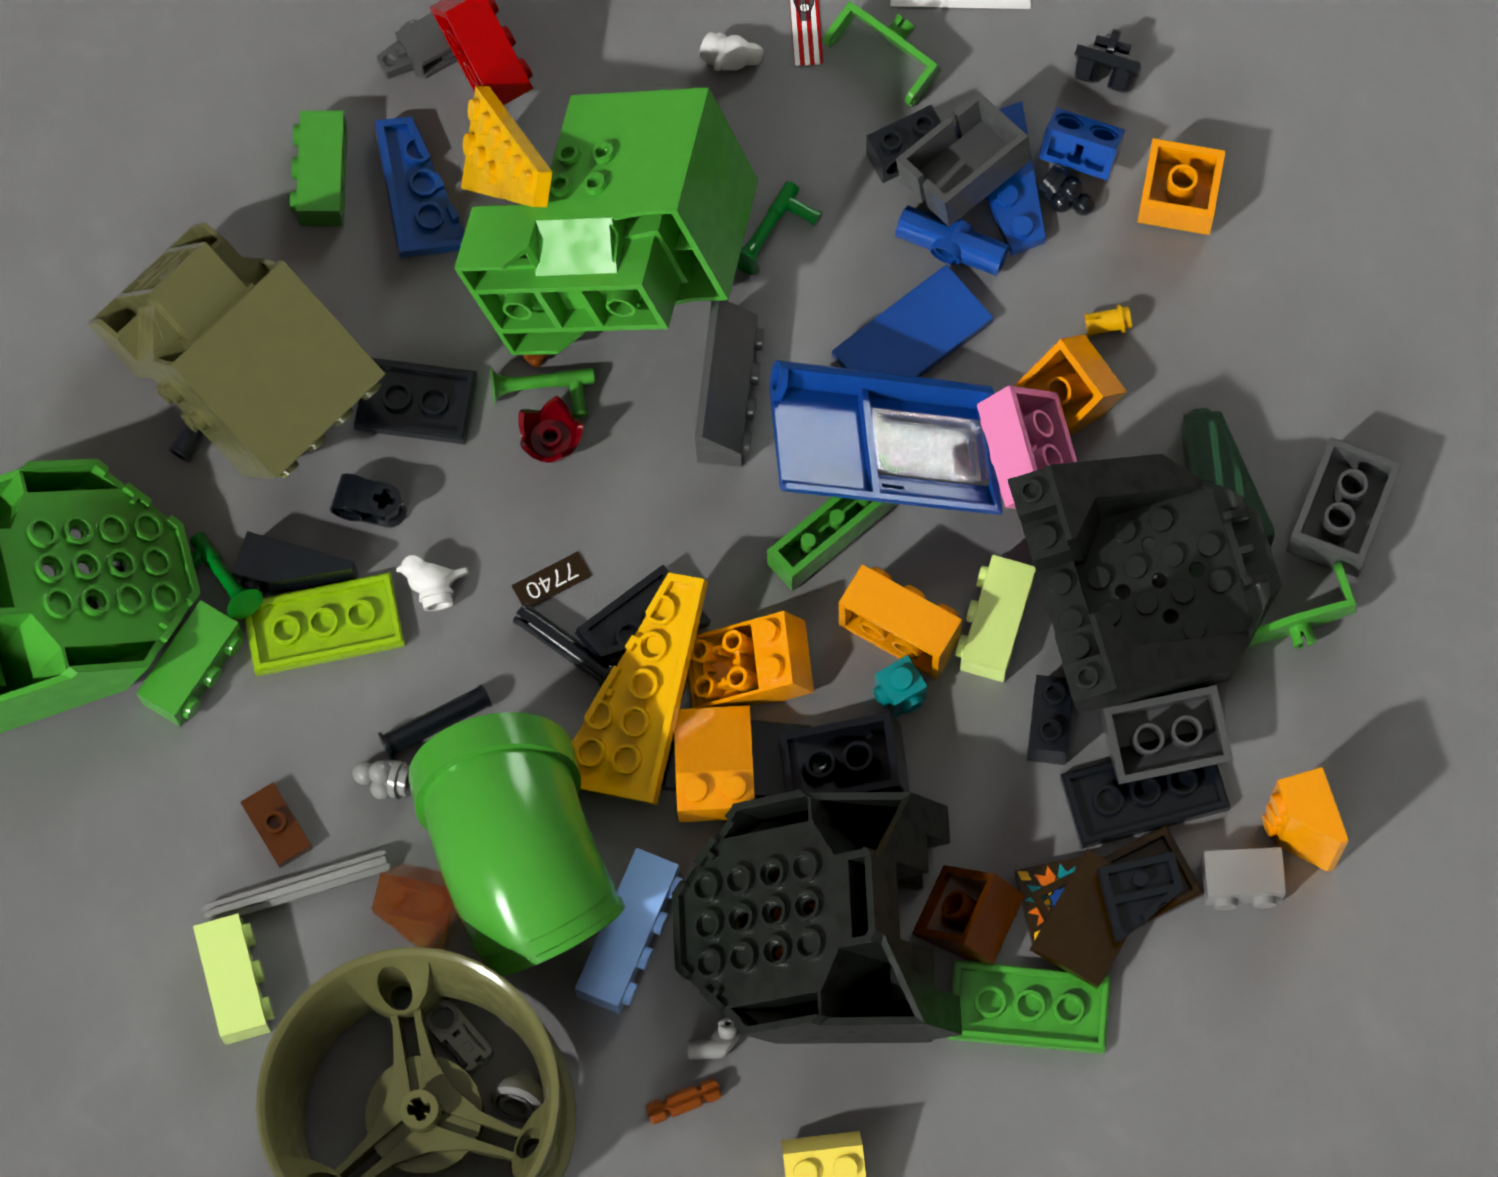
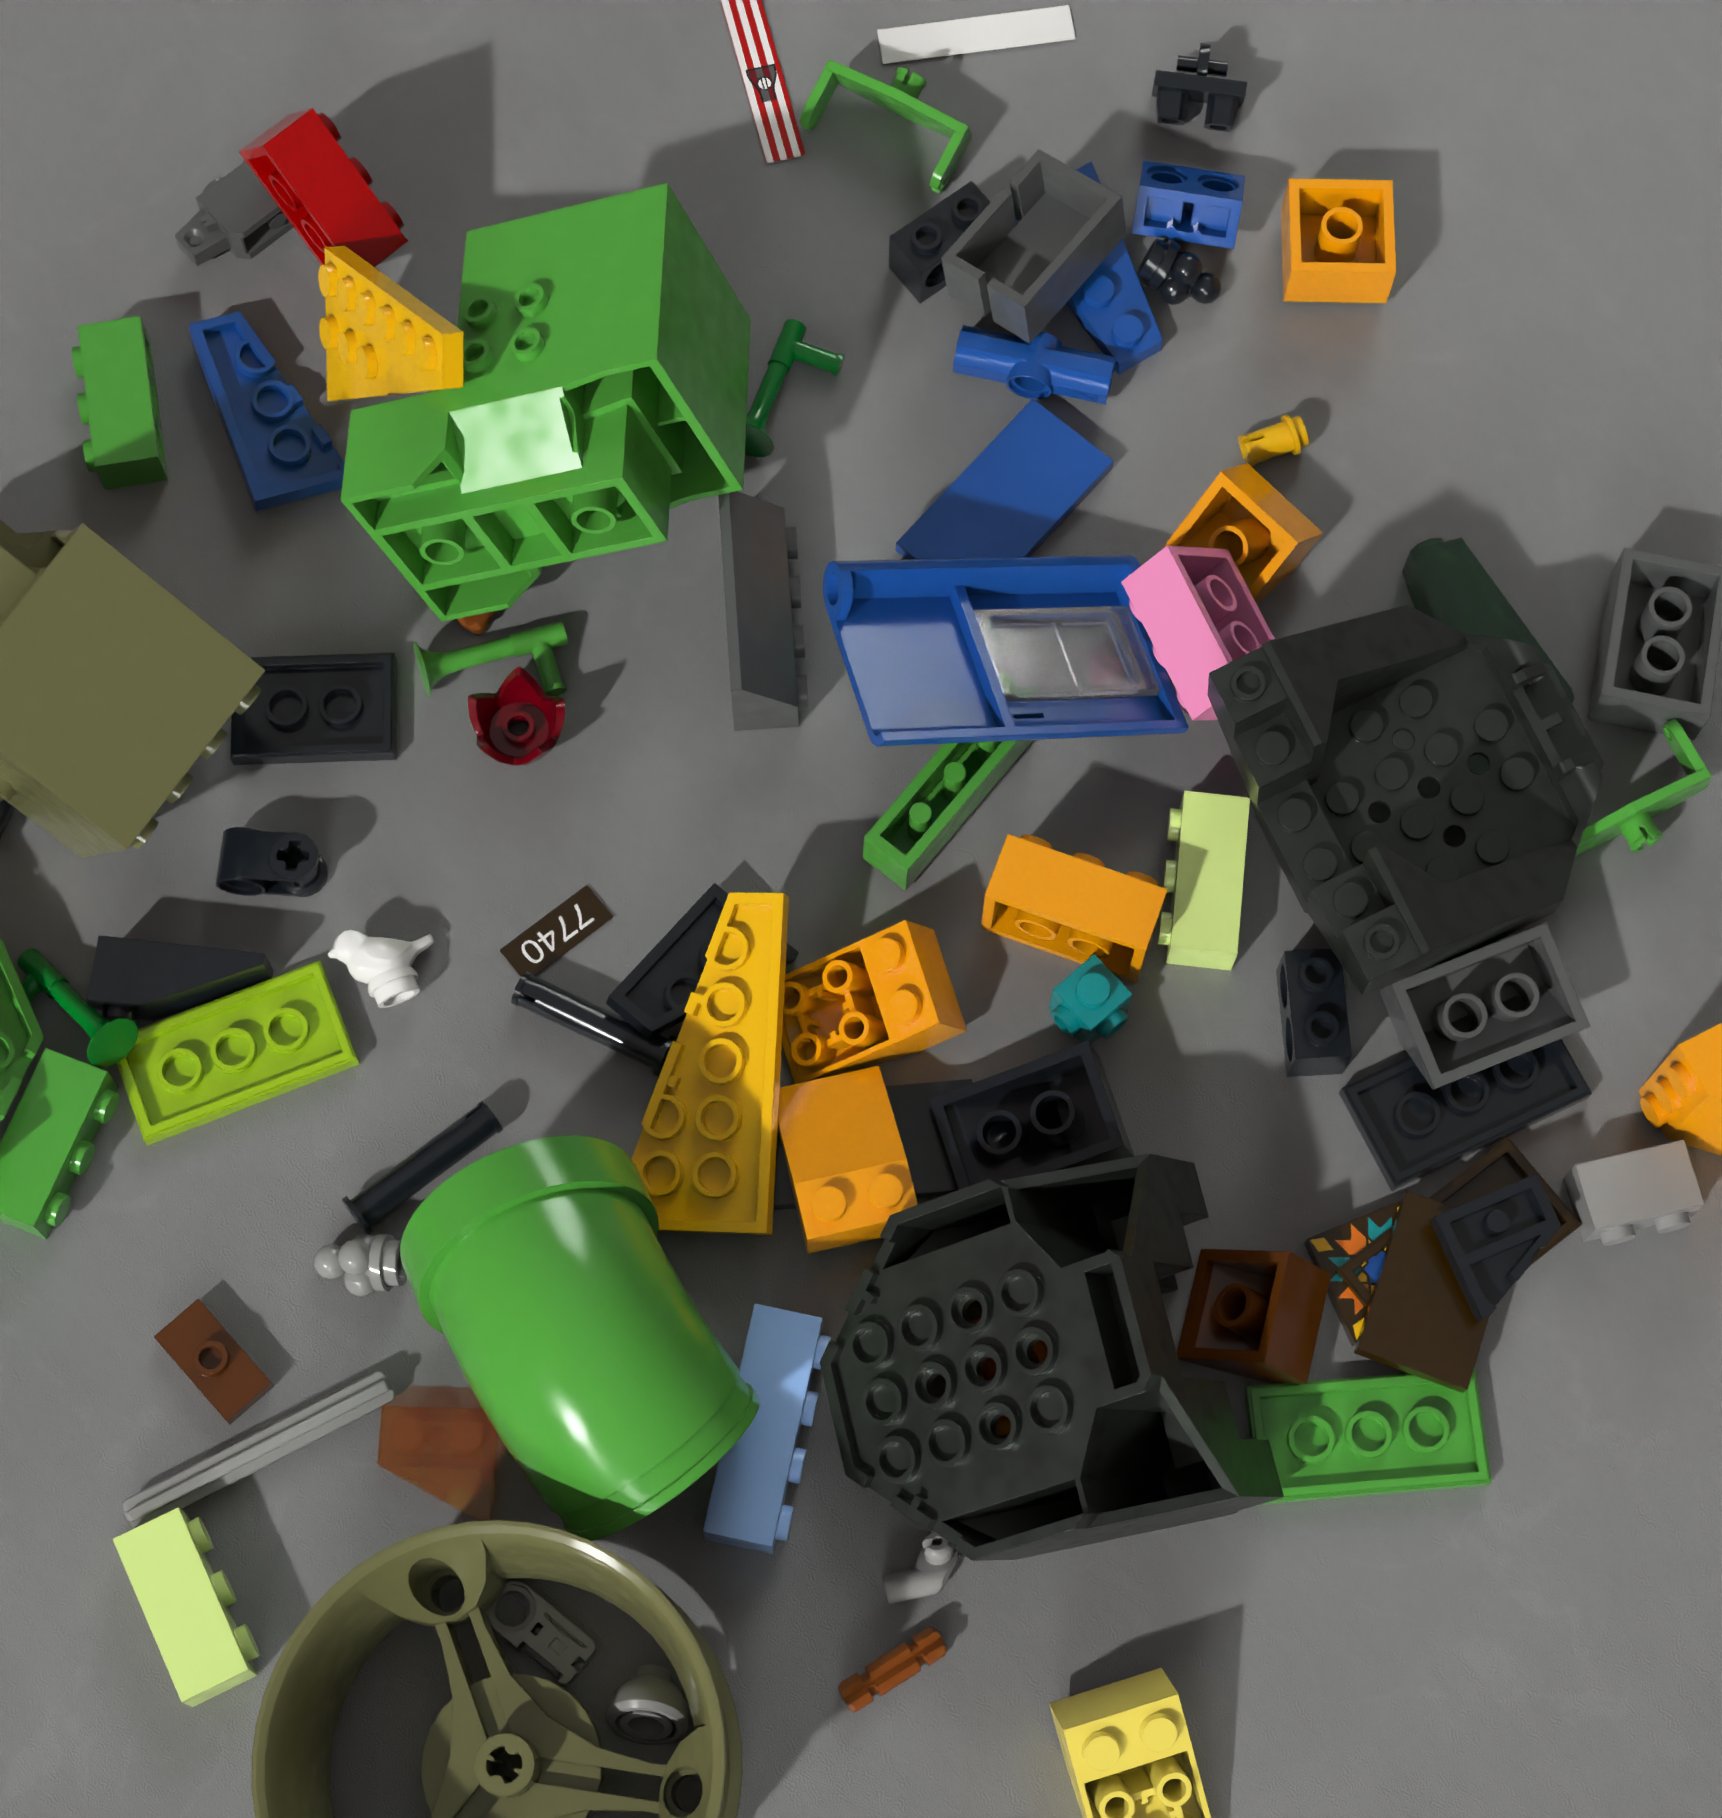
camera: 15 degrees left, 0 degrees up
(729, 52) = (673, 156): white animal -> none

